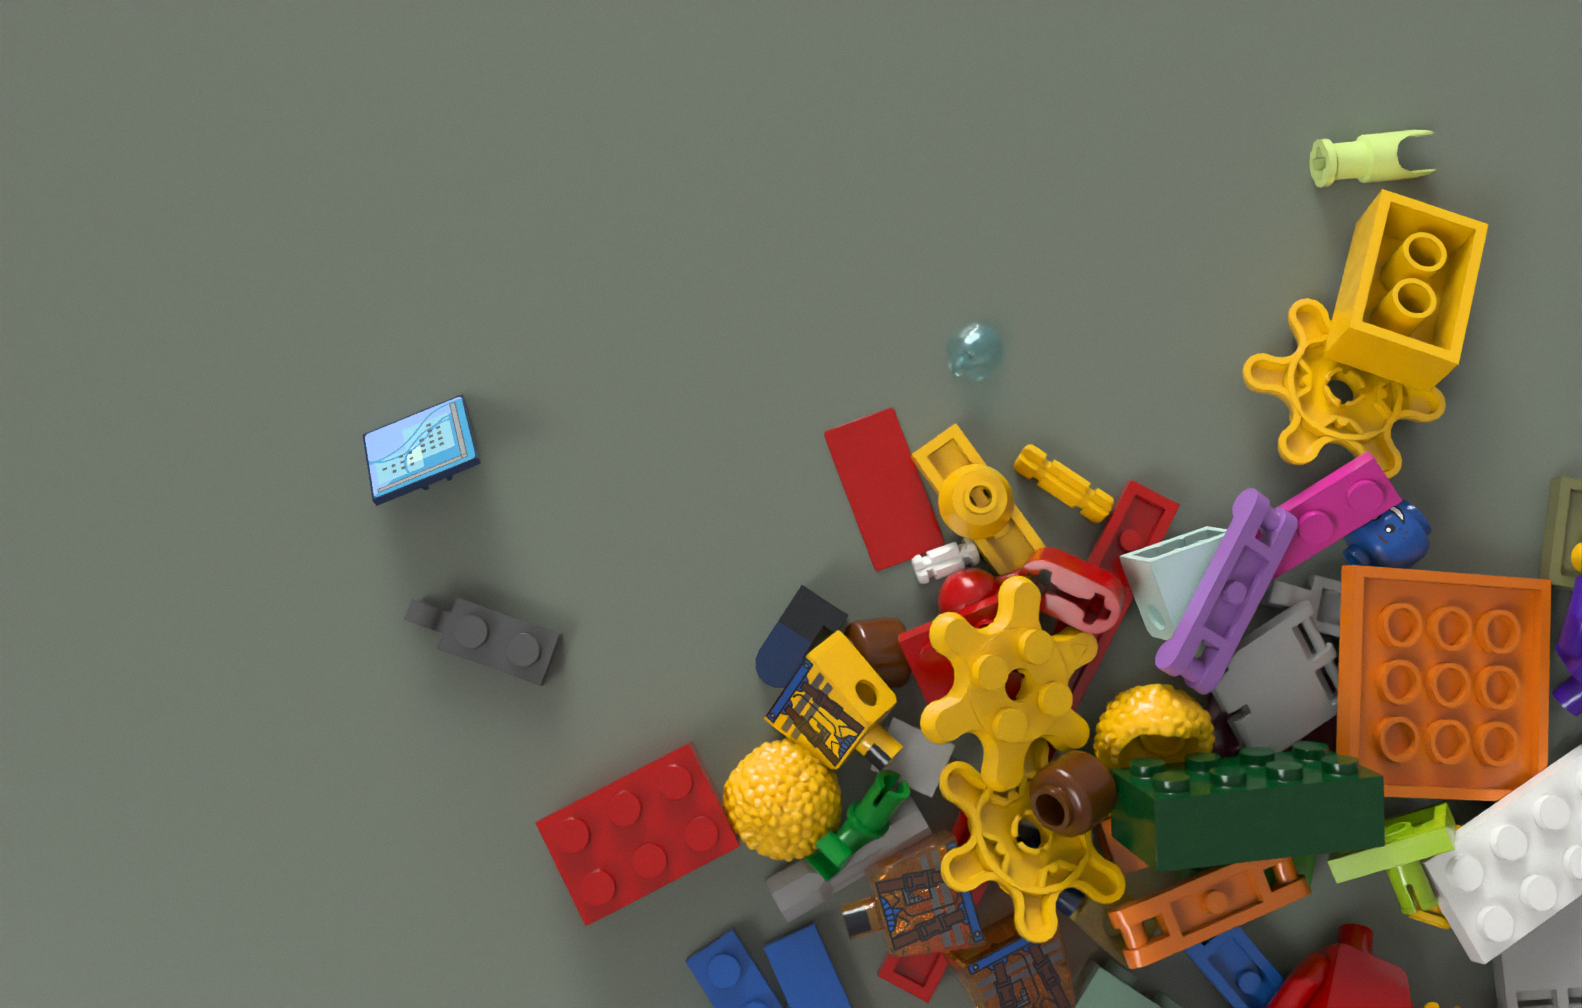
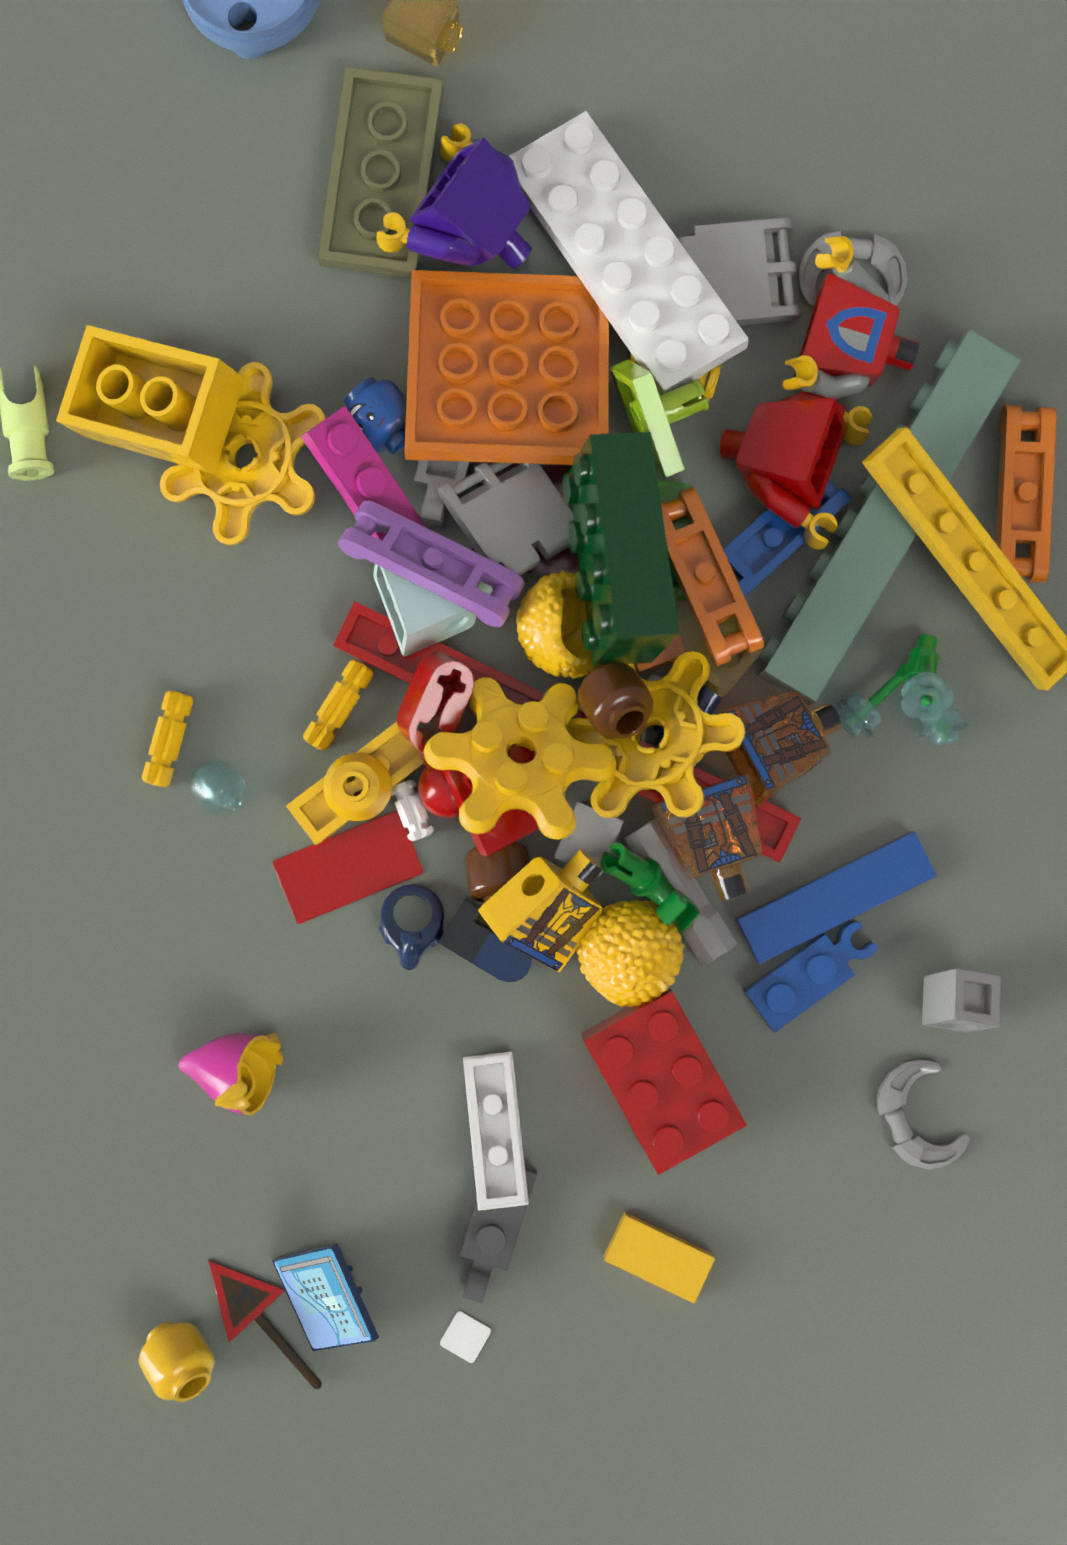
camera: 95 degrees left, 5 degrees up
(362, 290) = (176, 1361): none -> yellow head
(366, 600) = (465, 1337): none -> white sticker
(420, 363) = (244, 1300): none -> piece
(440, 819) = (659, 1257): none -> yellow tile
(590, 641) = (495, 1131): none -> white tile
(670, 362) = (236, 1070): none -> hat
(801, 555) = (411, 944): none -> dark blue piece
(1029, 299) = (167, 738): none -> yellow axle

